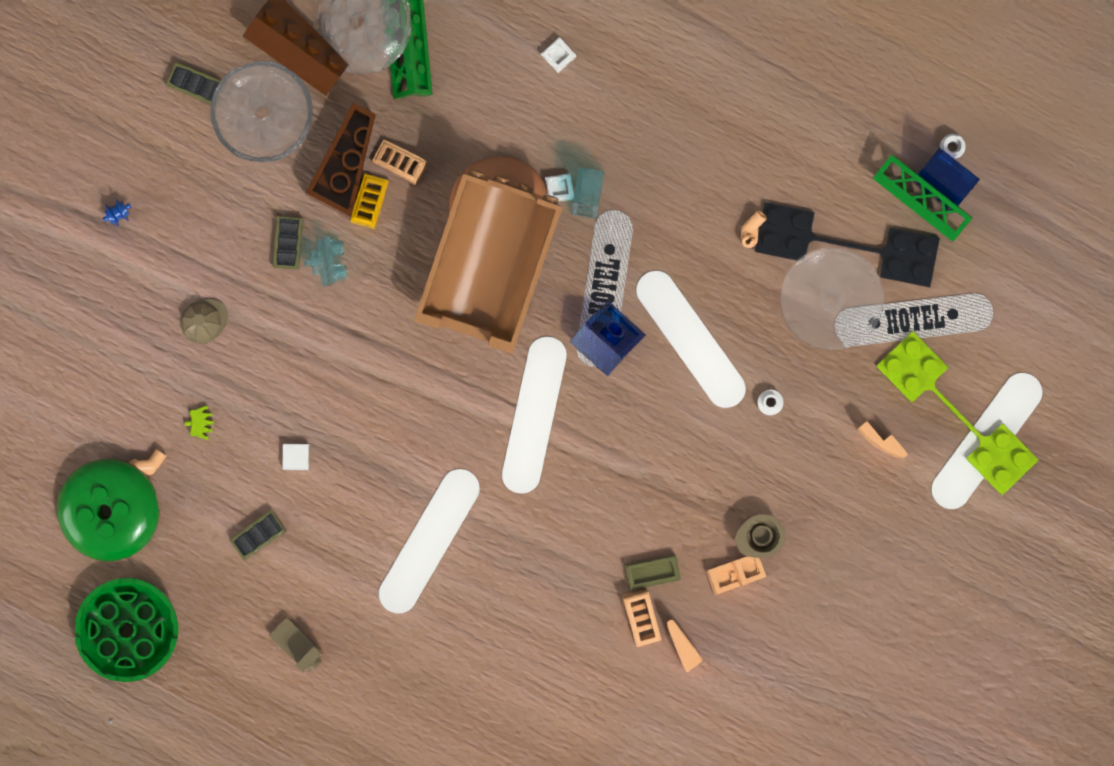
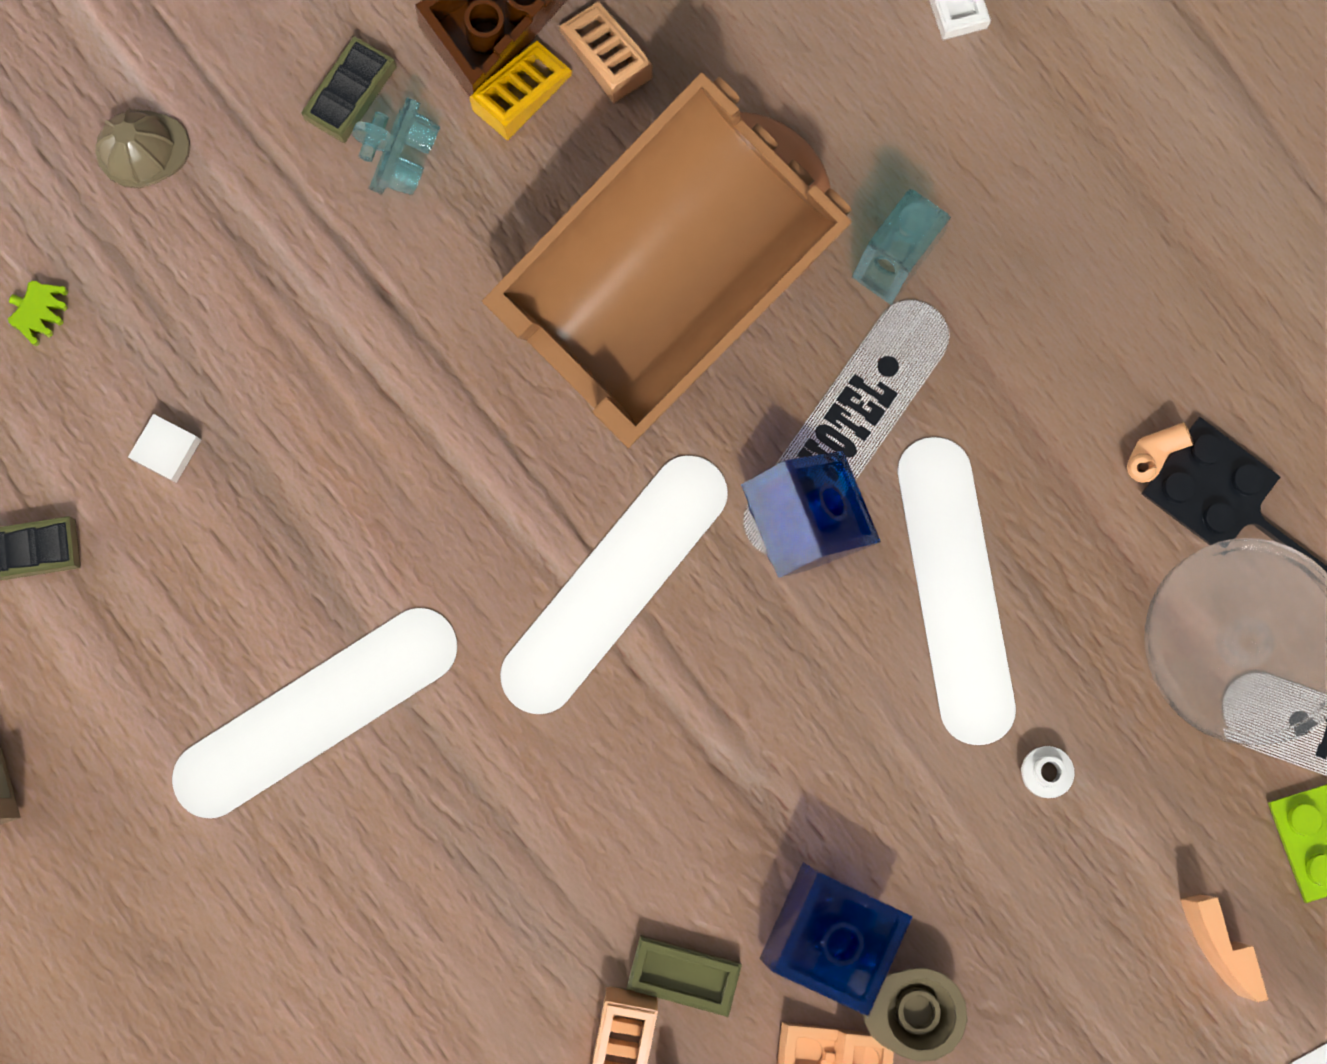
camera: 20 degrees right, 5 degrees down
(560, 187) = (865, 221): white tile -> none
(710, 522) = (835, 939): none -> clear blue slope

